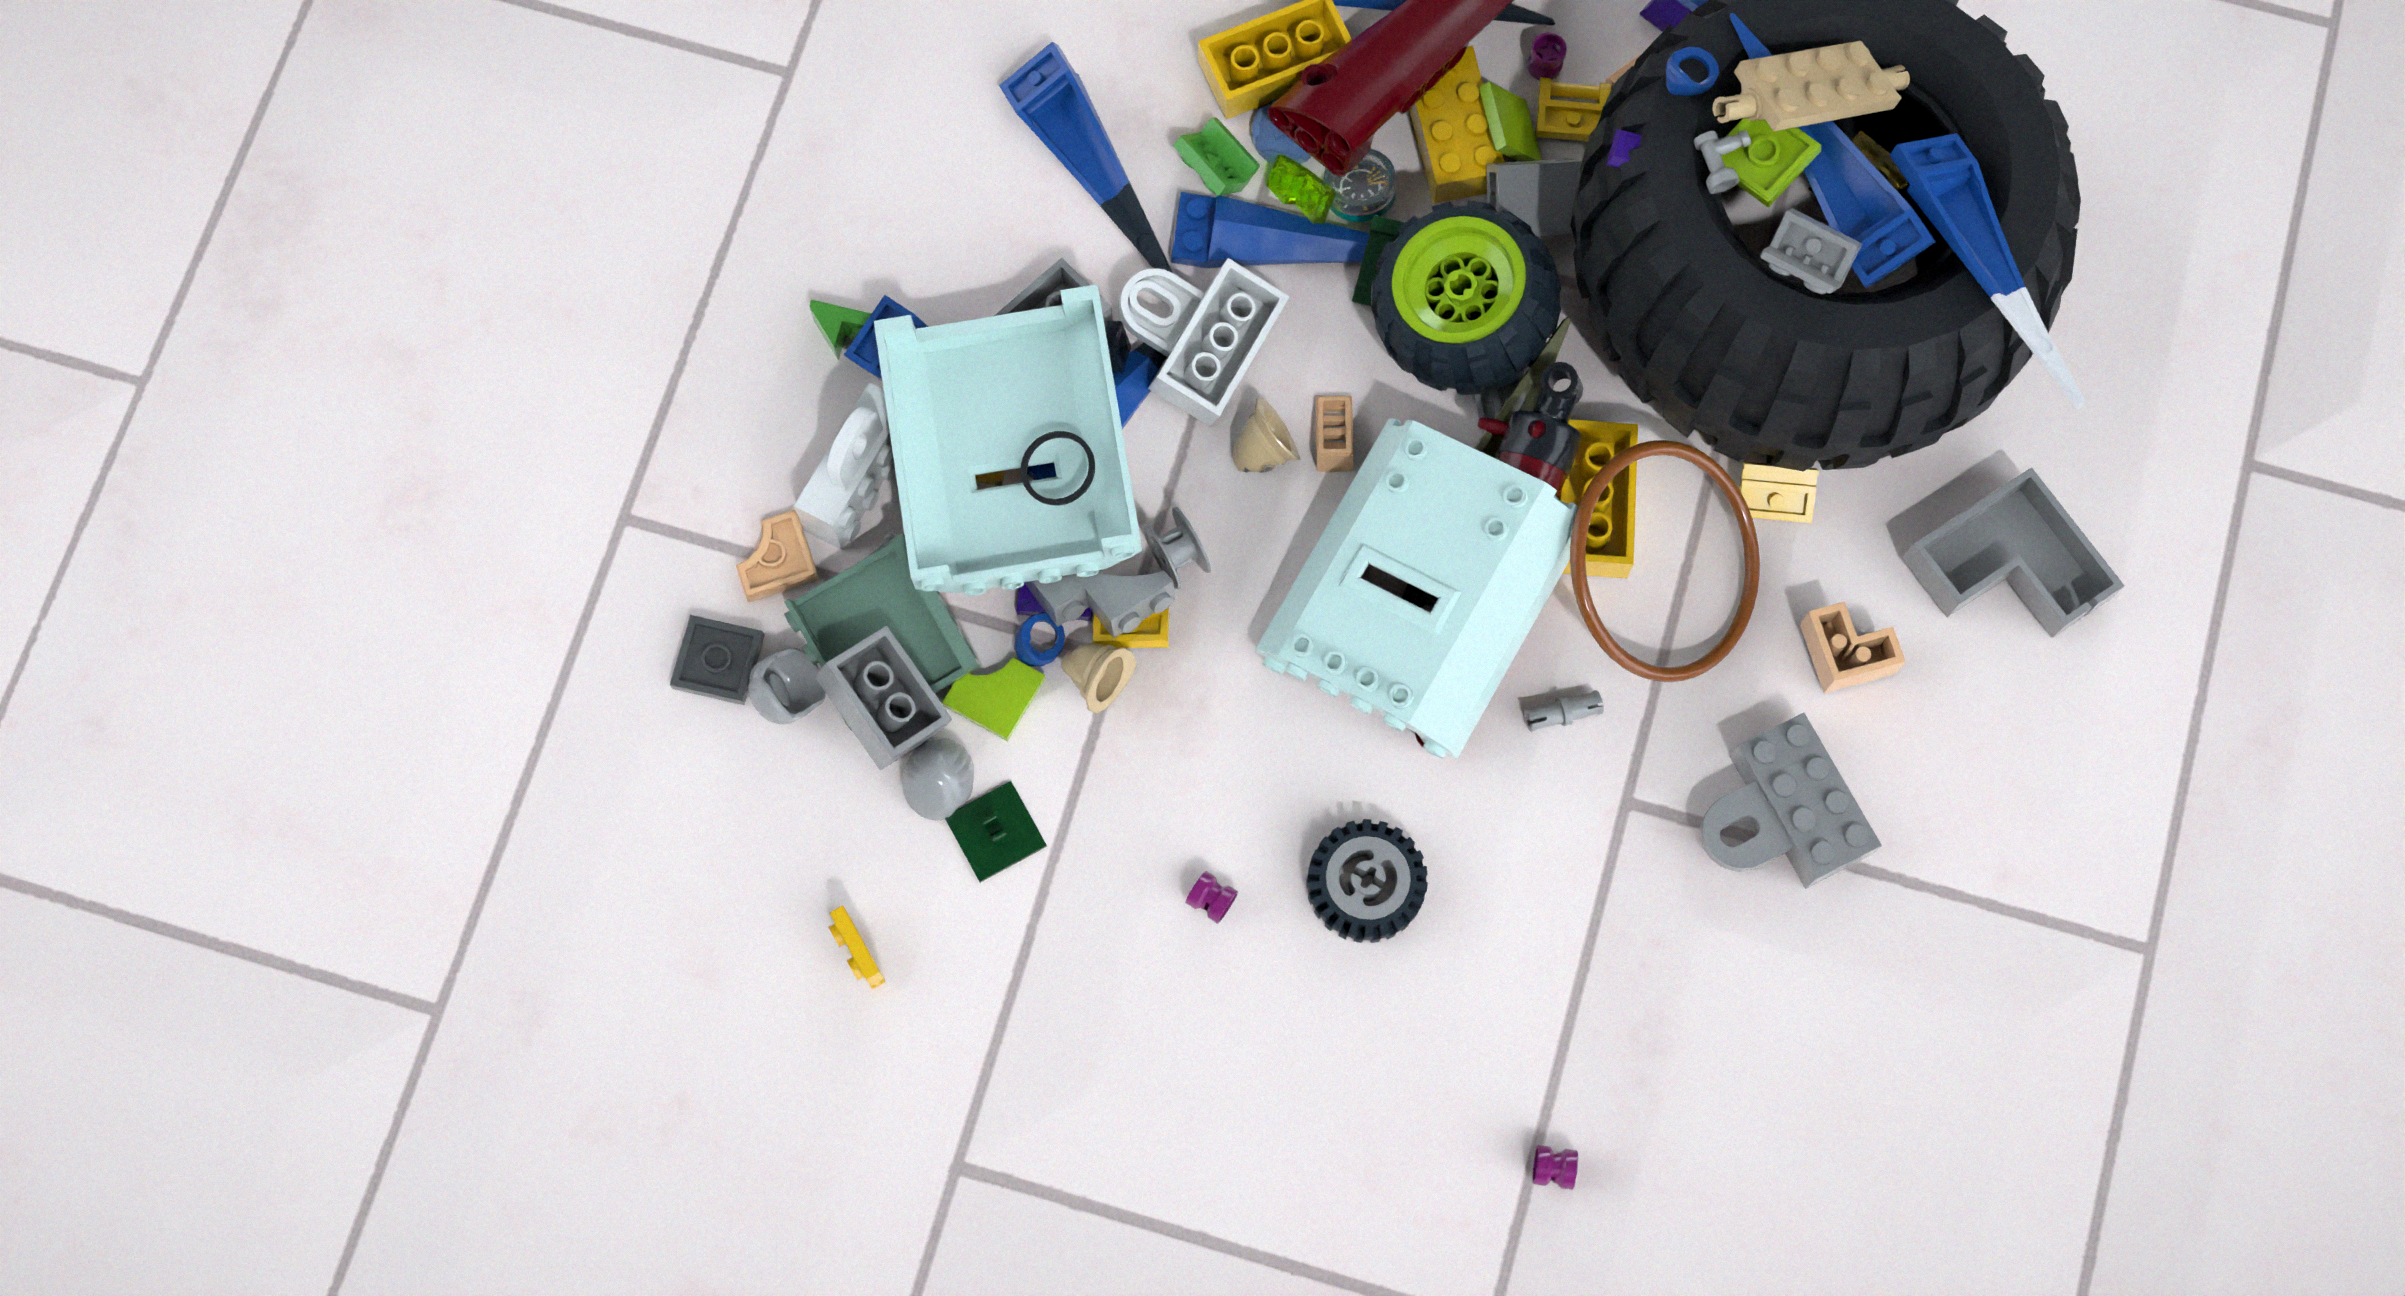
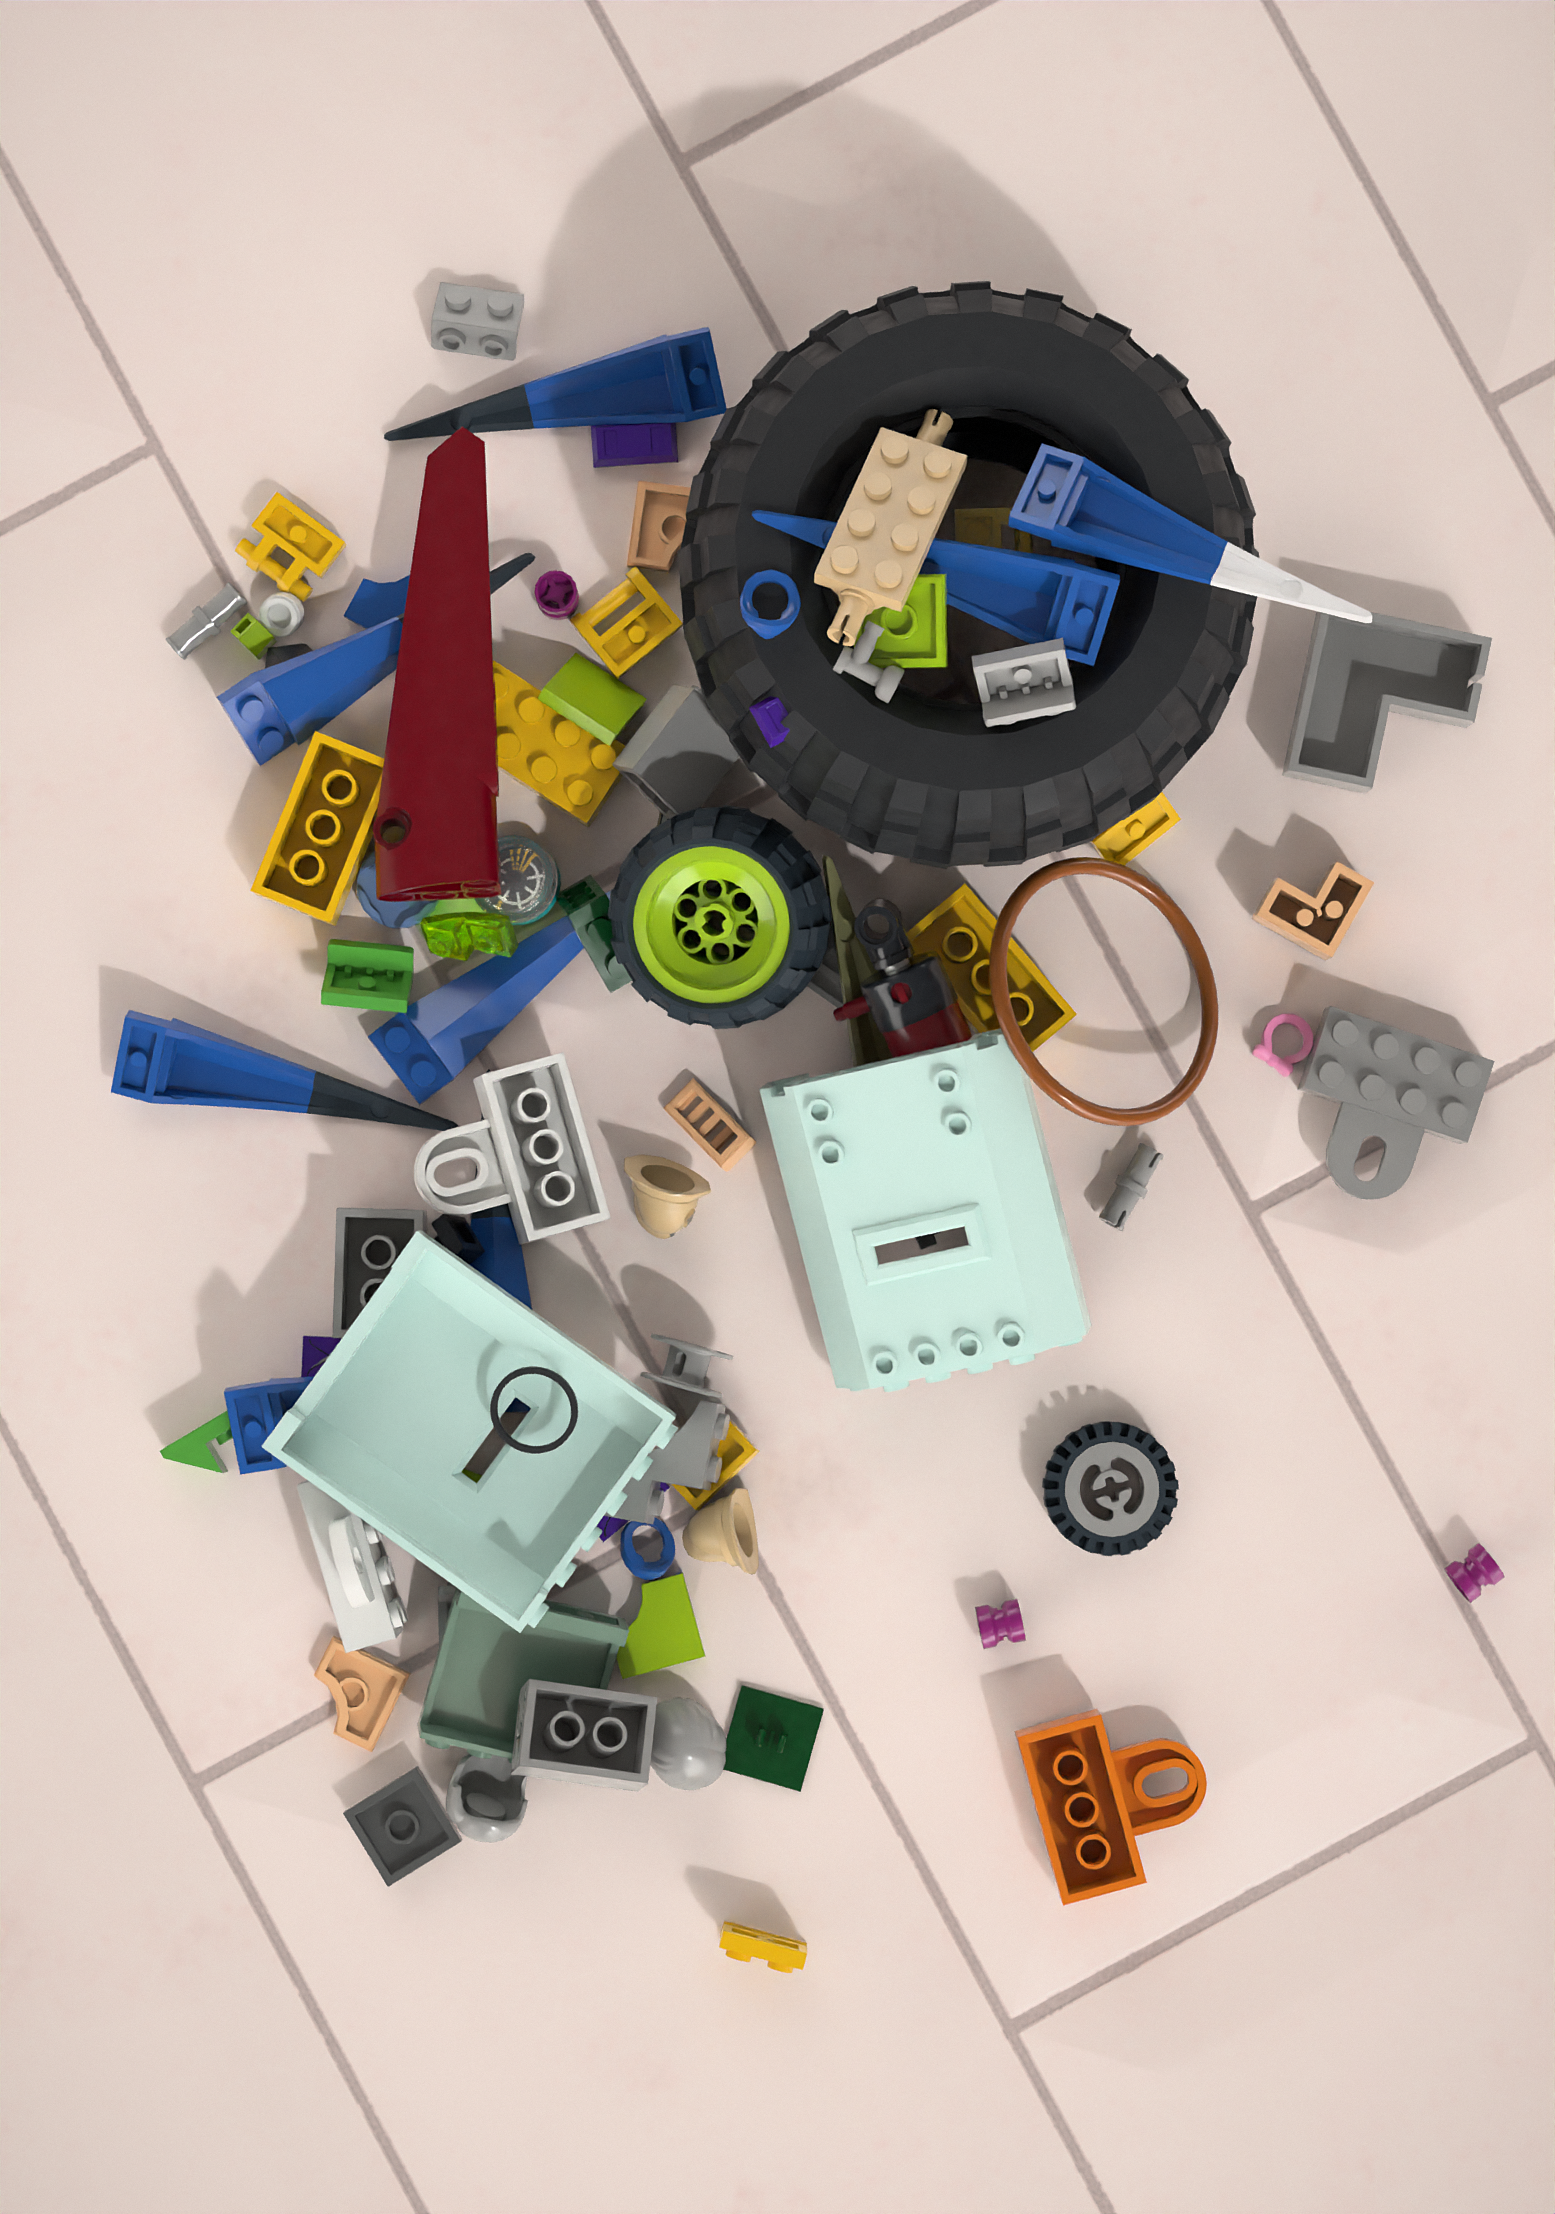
camera: 45 degrees left, 15 degrees up
(1160, 1065) = (1095, 1800): none -> orange brick
(1730, 709) = (1264, 1050): none -> bright pink piece

